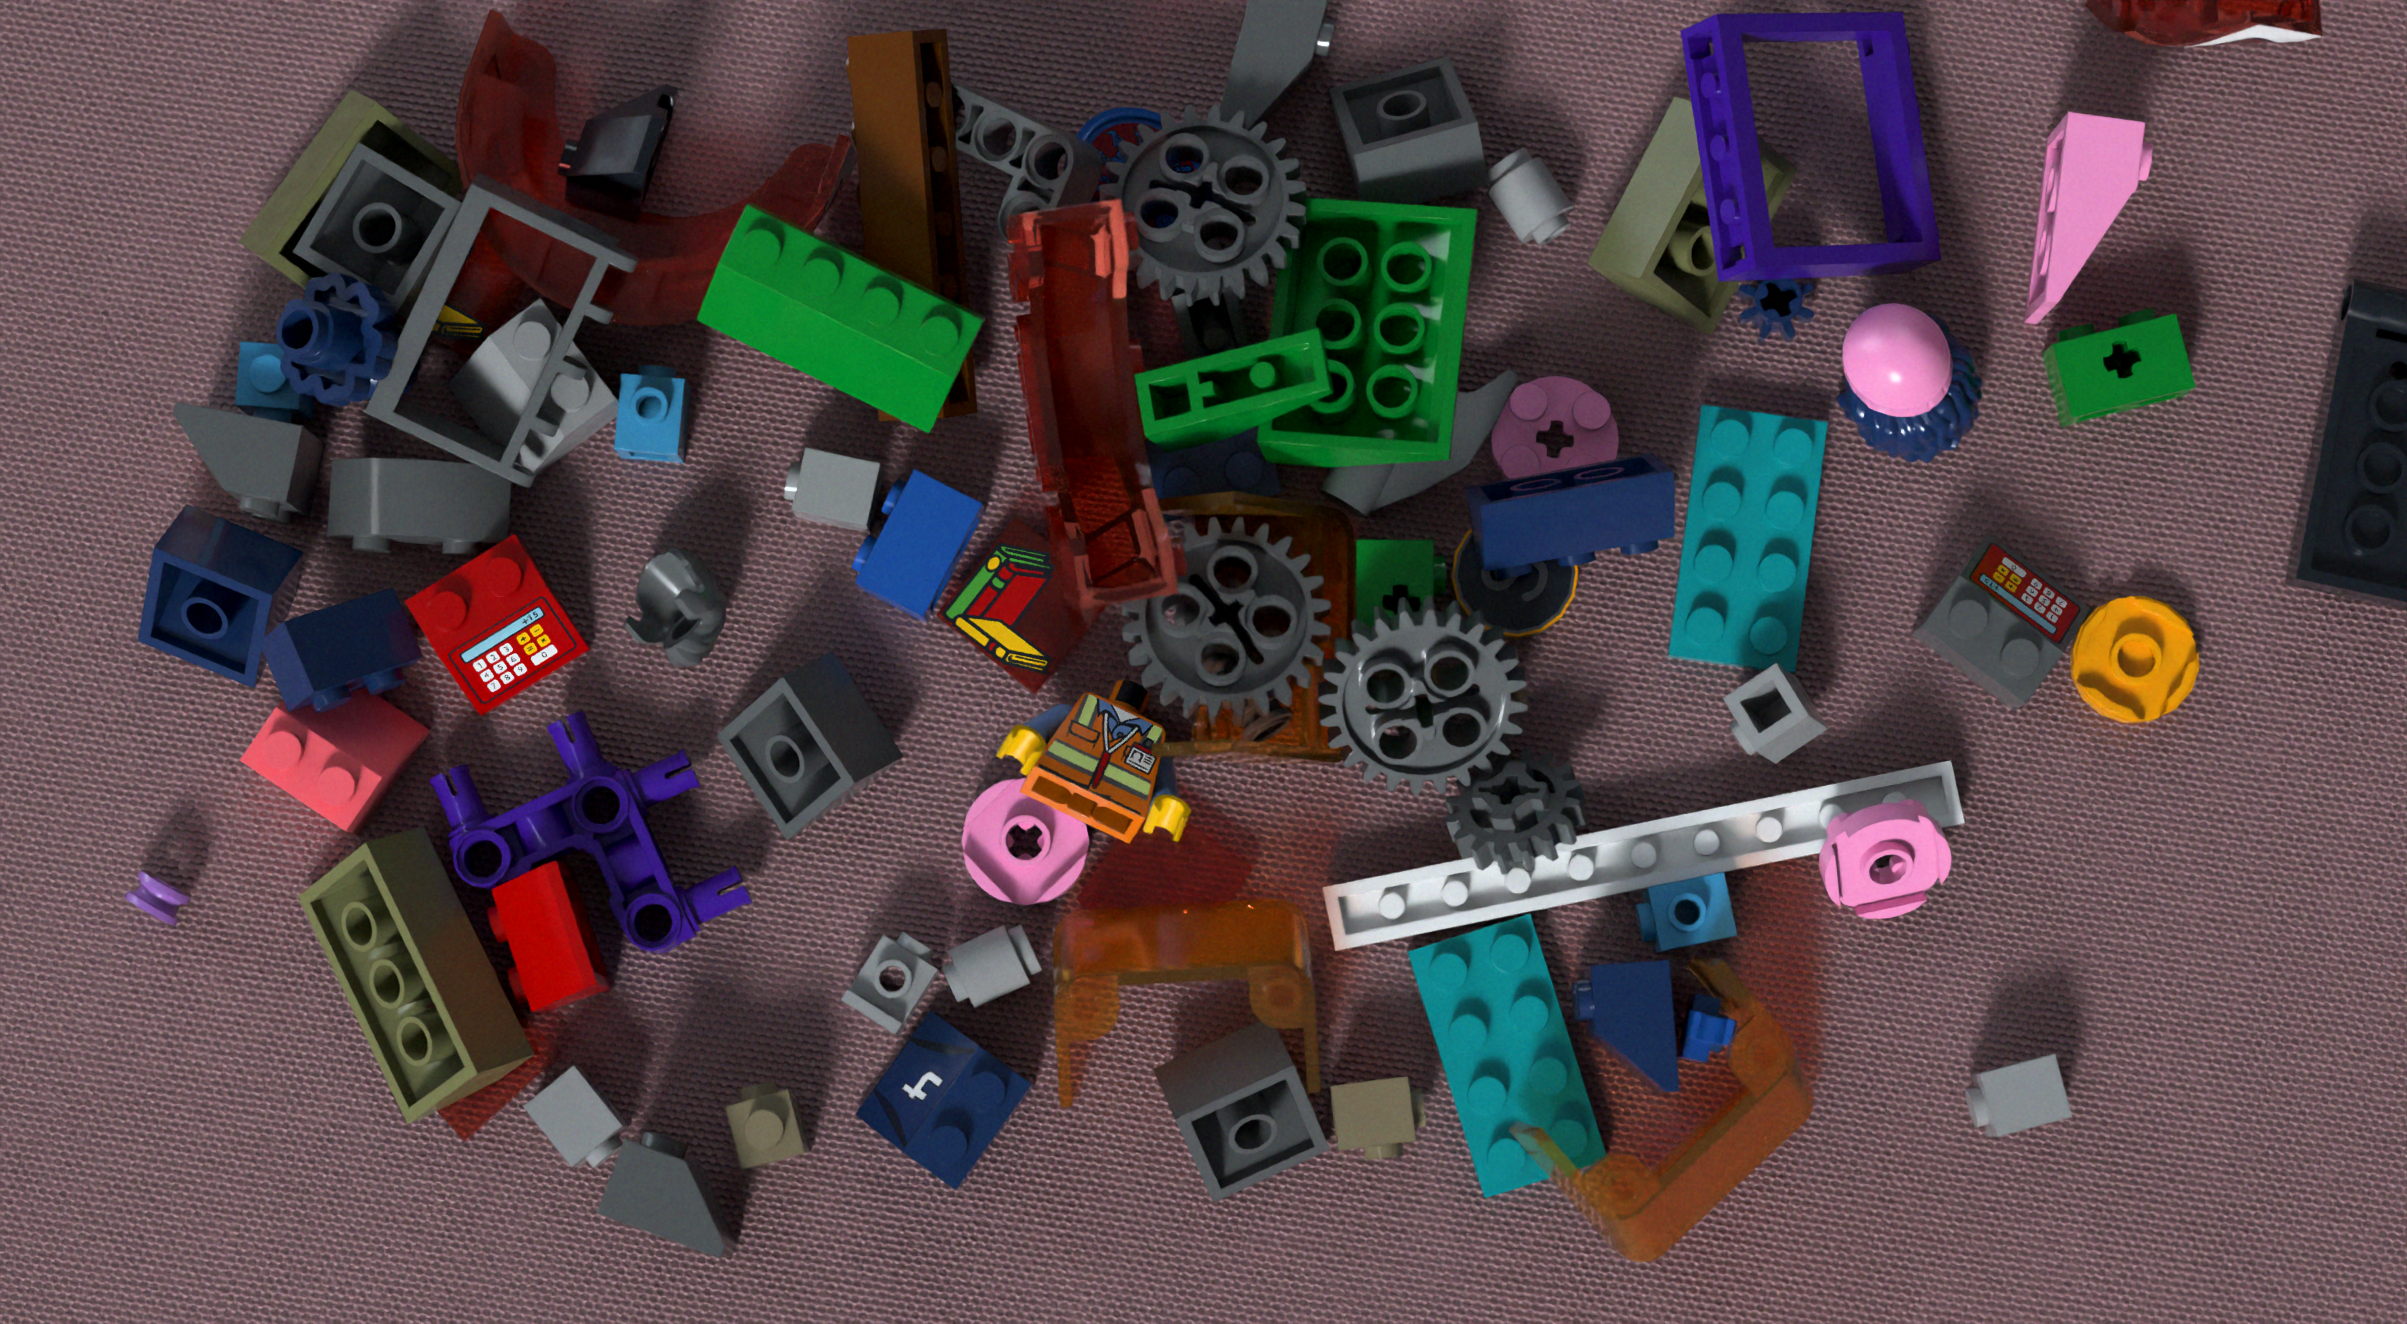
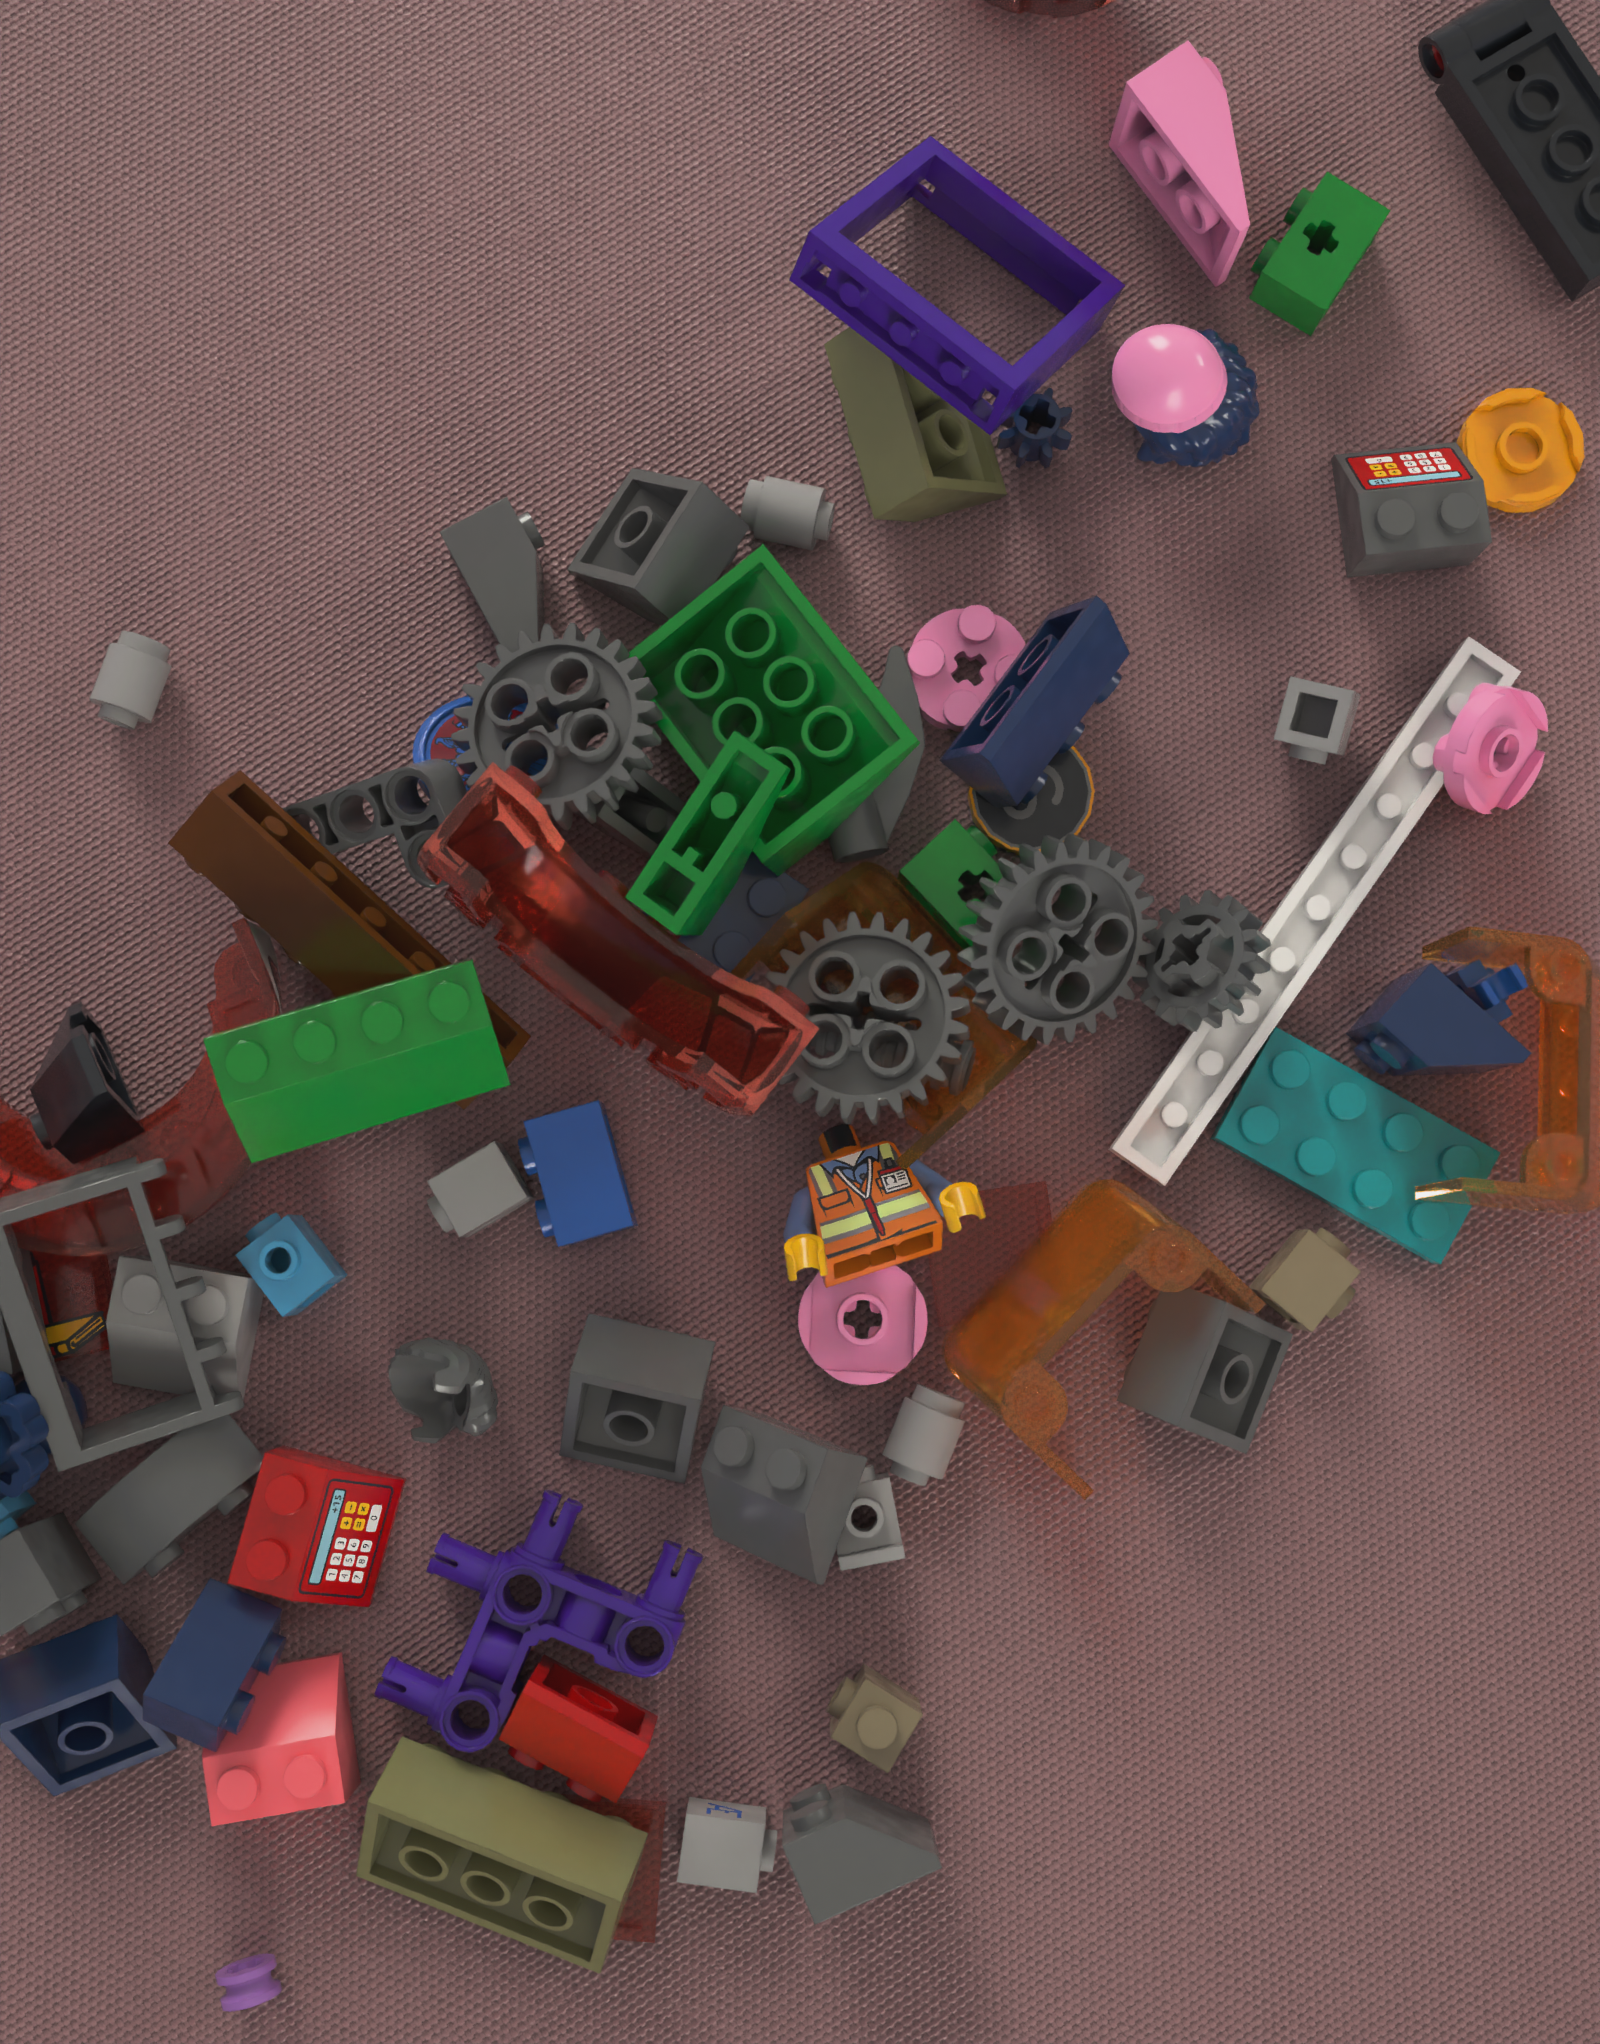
camera: 45 degrees left, 0 degrees up
(849, 902) = (779, 1490): none -> dark grey slope
(944, 1100) = (985, 1569): dark blue slope -> none
(1017, 610) = (694, 1152): tile -> none
(1686, 913) = (1390, 921): dark azure brick -> none
(1747, 539) = (1176, 613): teal plate -> none

